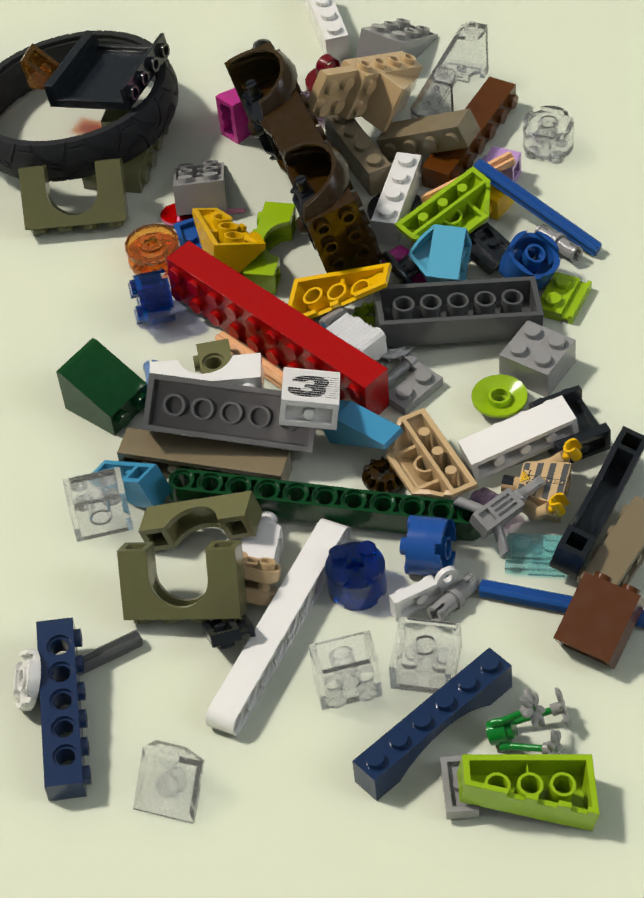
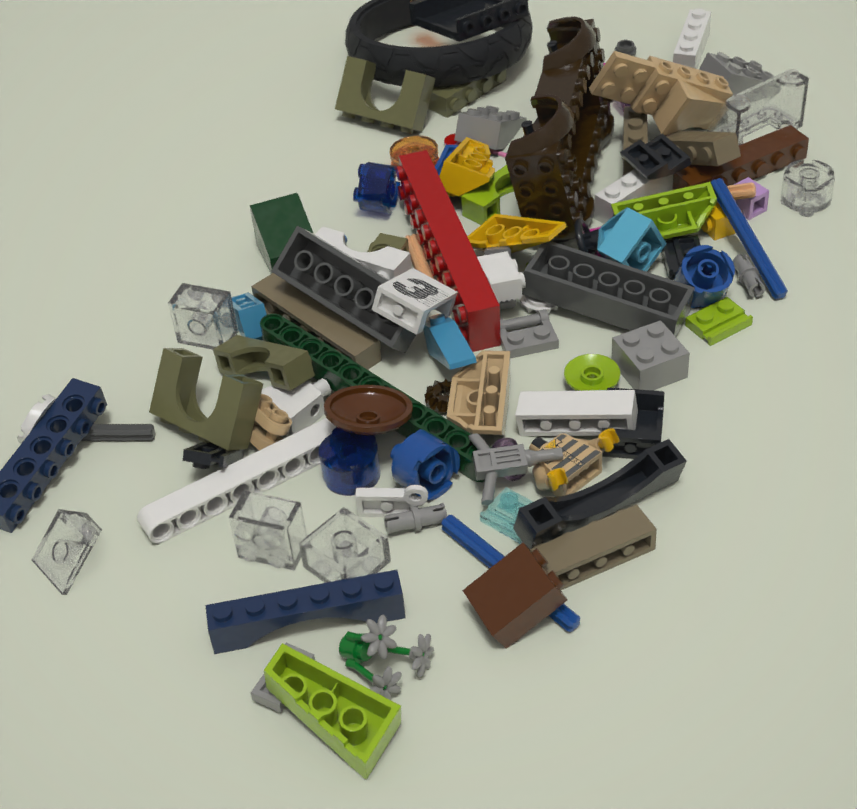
camera: 30 degrees right, 5 degrees down
(352, 519) = (368, 409): none -> reddish brown dish
(403, 160) = (656, 158): none -> black slope

